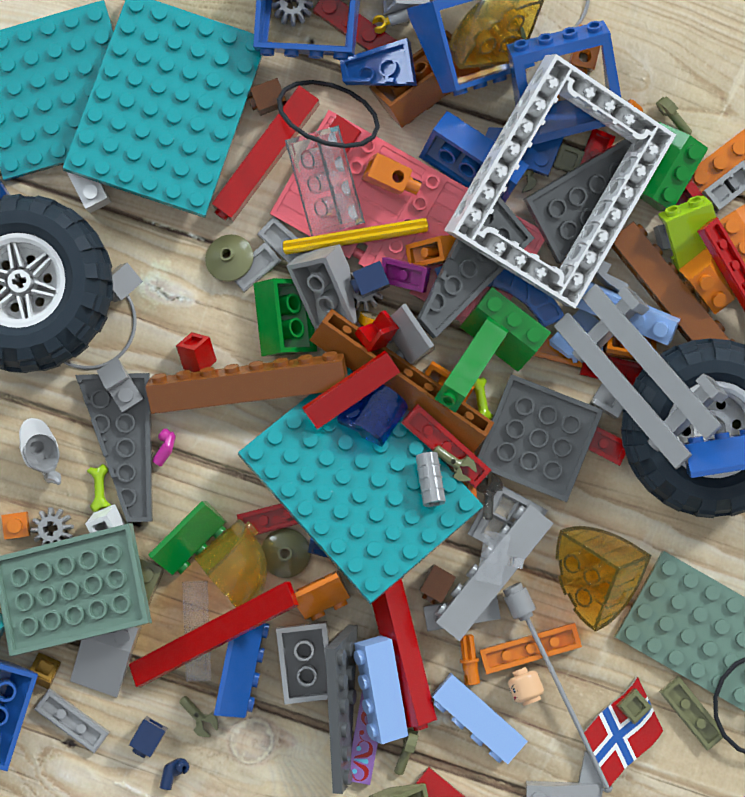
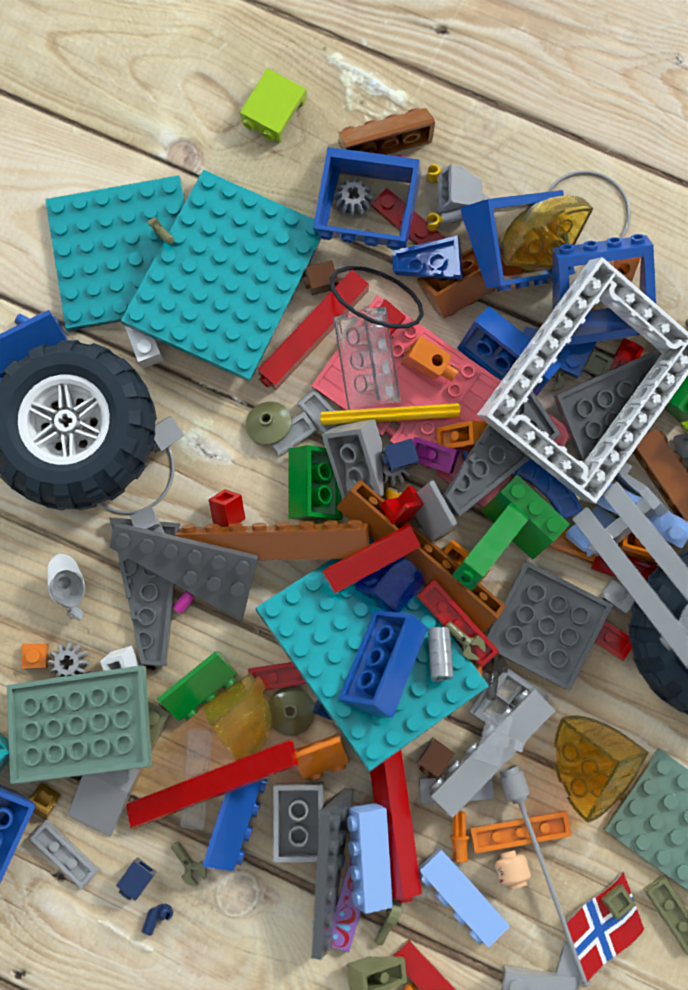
camera: 10 degrees right, 5 degrees down
(92, 66) = (160, 231): none -> olive bar
(98, 475) = (118, 640): lime piece -> none
(181, 419) = (203, 569): none -> dark grey wing
(374, 494) = (383, 663): none -> blue slope
(481, 397) = (494, 580): lime piece -> none

